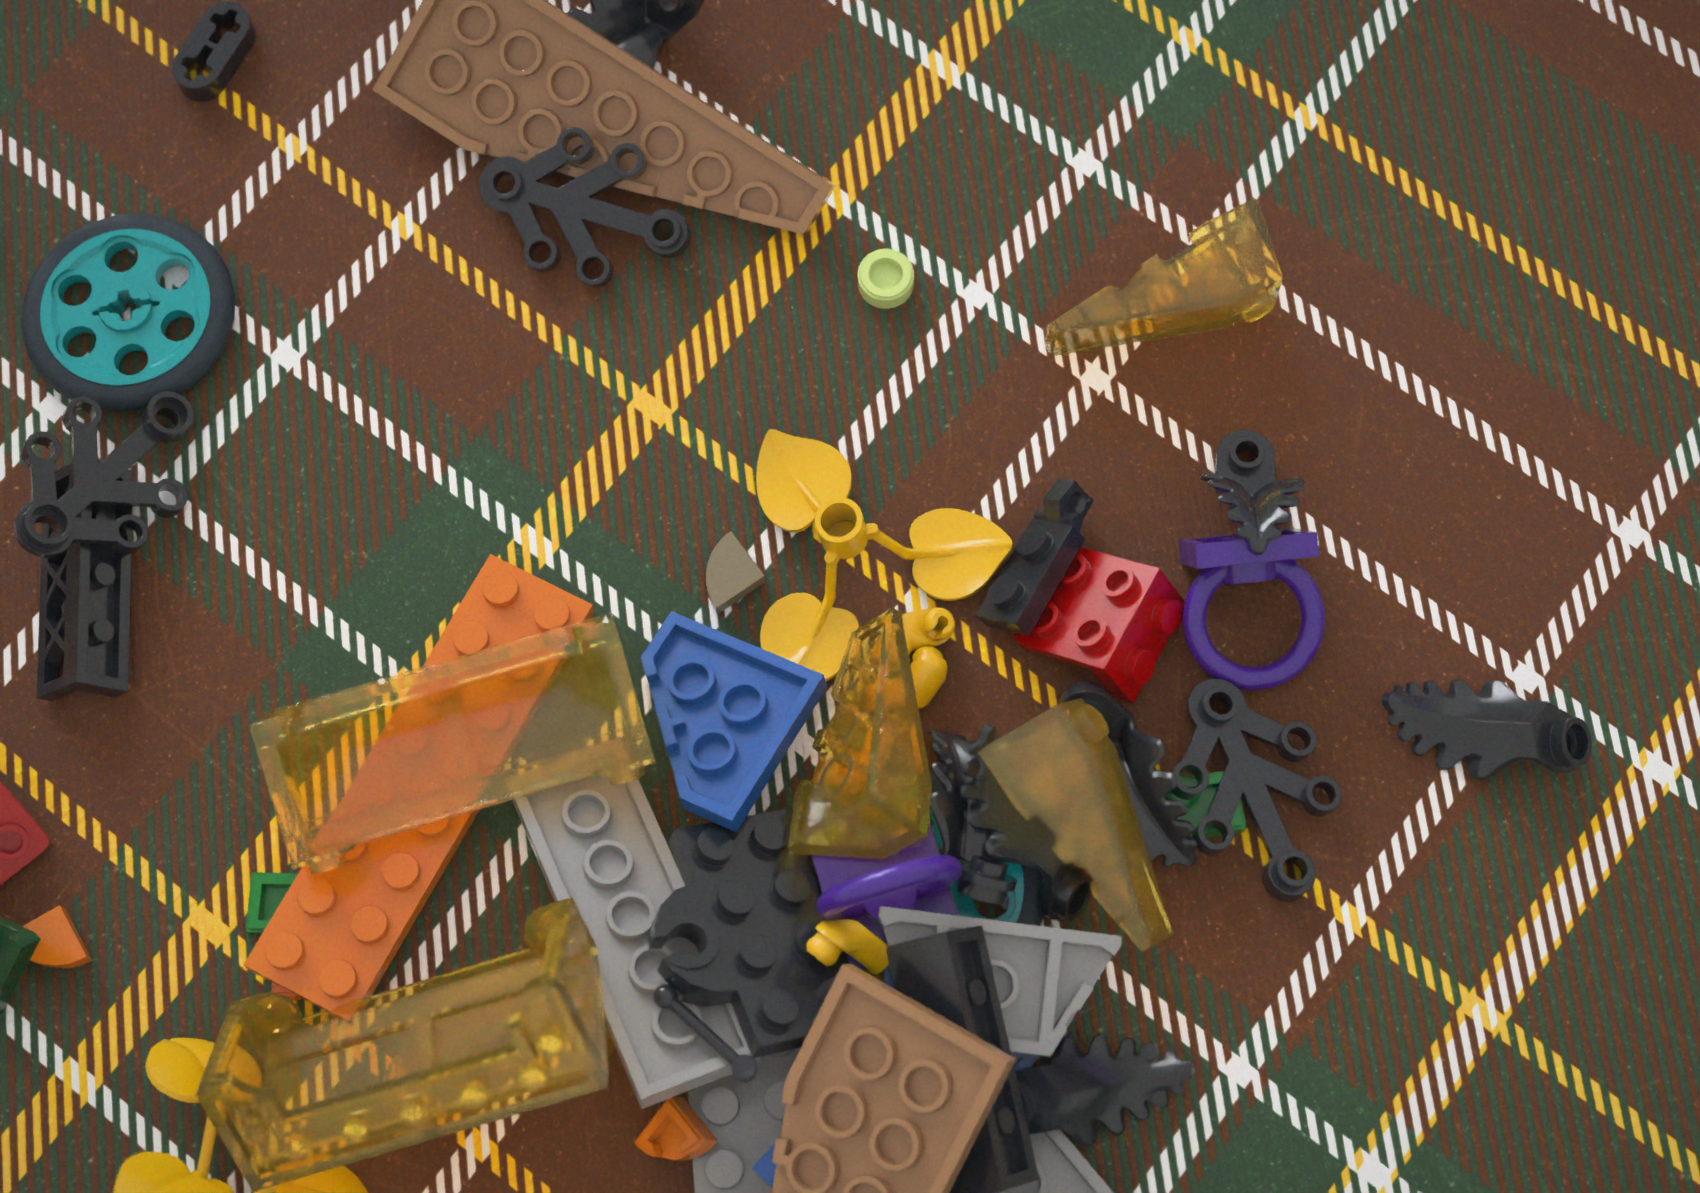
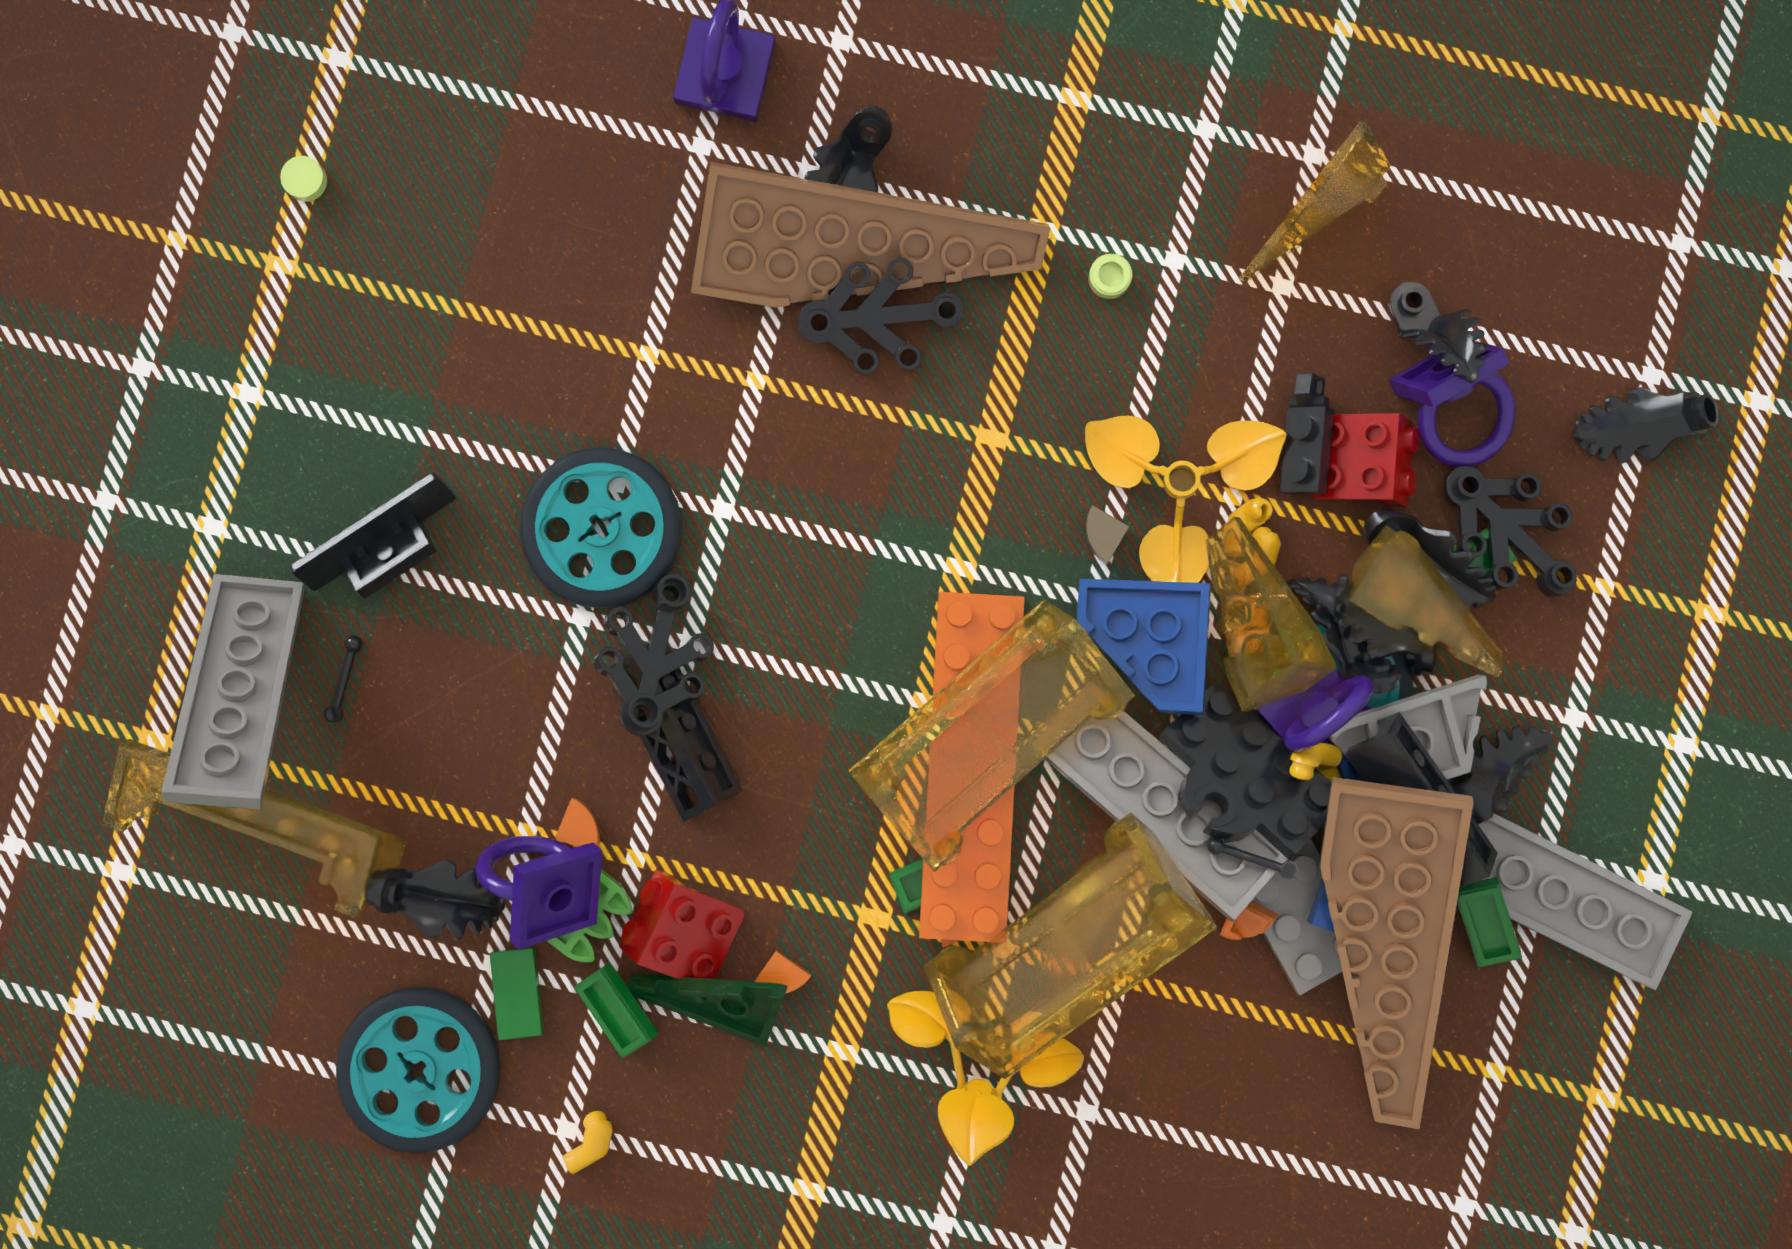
camera: 25 degrees left, 15 degrees up
(218, 53) = (547, 307): black beam -> none

